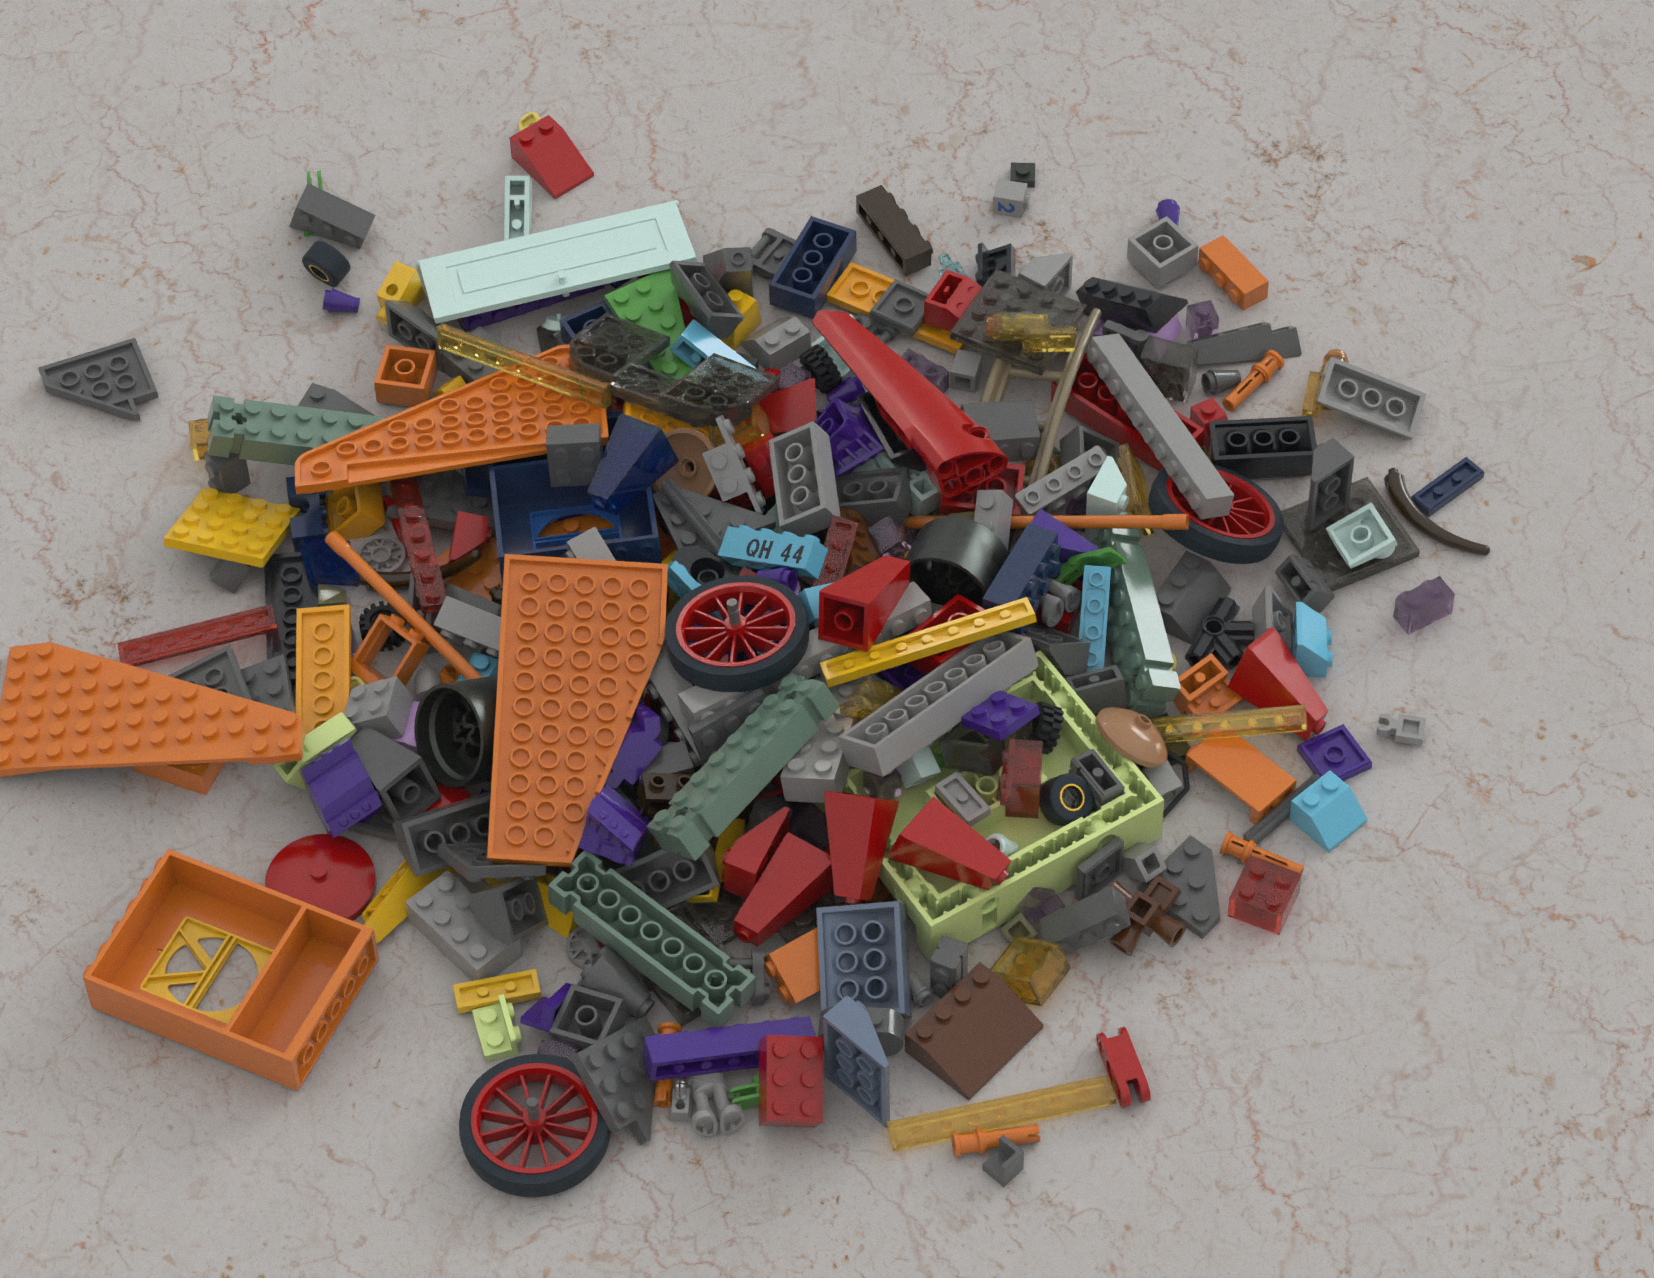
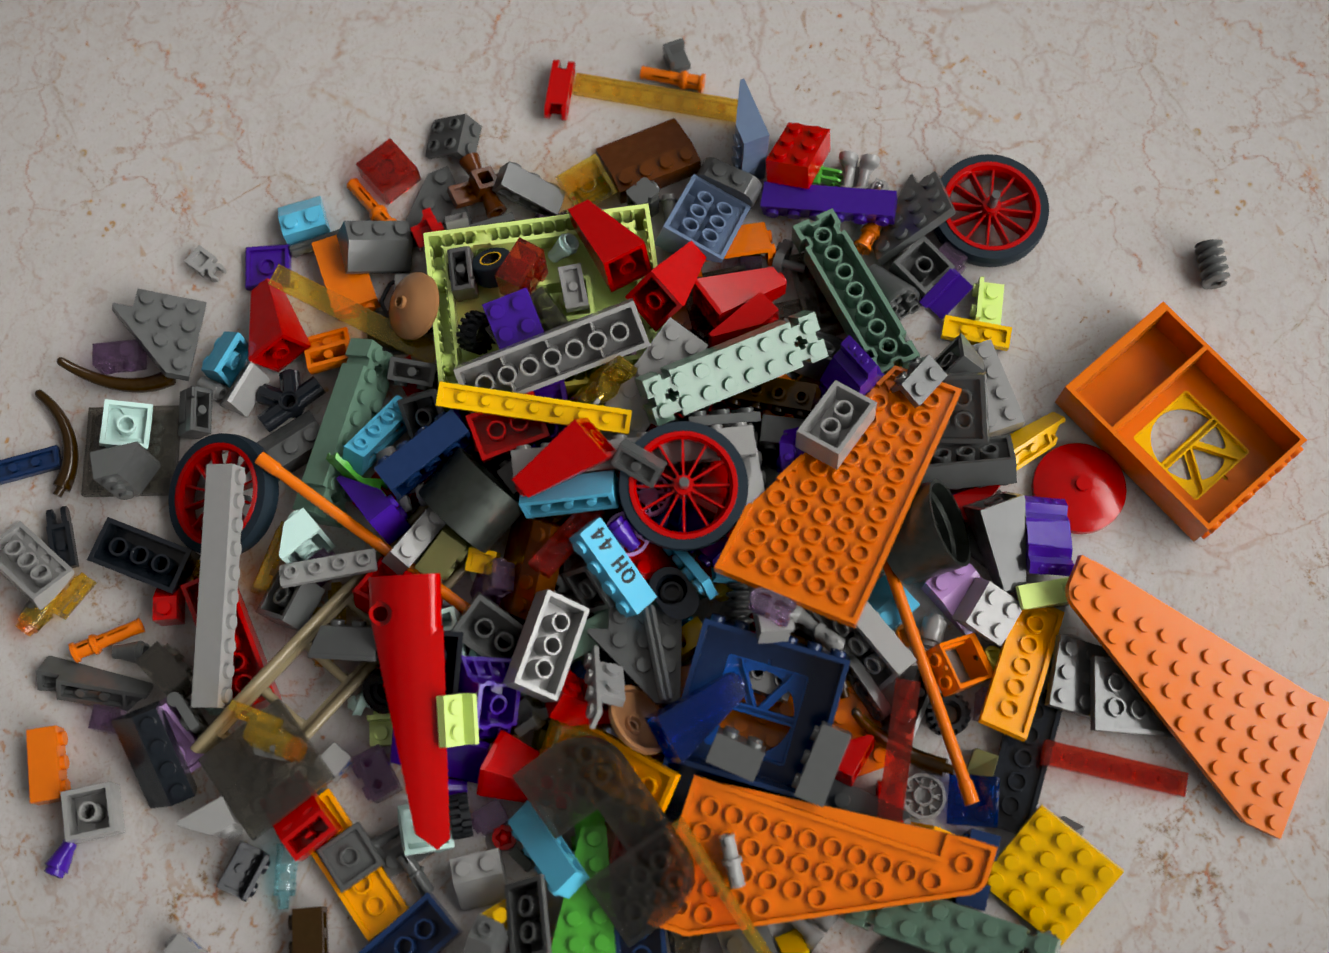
camera: 155 degrees left, 20 degrees up
(244, 1172) = (1210, 263): none -> dark grey piece
(491, 481) = (821, 763): none -> dark grey brick
(537, 841) = (919, 379): none -> bracket
(541, 392) = (732, 860): none -> light grey pin
(604, 546) = (763, 602): none -> clear purple plate
(605, 744) = (836, 424): none -> light grey brick
(789, 618) = (638, 463): none -> dark grey slope
(854, 388) = (457, 720): none -> yellowish green bracket
(1173, 838) = (427, 224): none -> red brick
(1213, 959) = (453, 136): none -> dark grey bracket
(1221, 800) = (375, 246): none -> dark grey slope
(1360, 440) = (61, 536): none -> black hinge
(1376, 598) = (136, 385): none -> dark brown animal
(1391, 641) = (165, 329): none -> dark grey wing

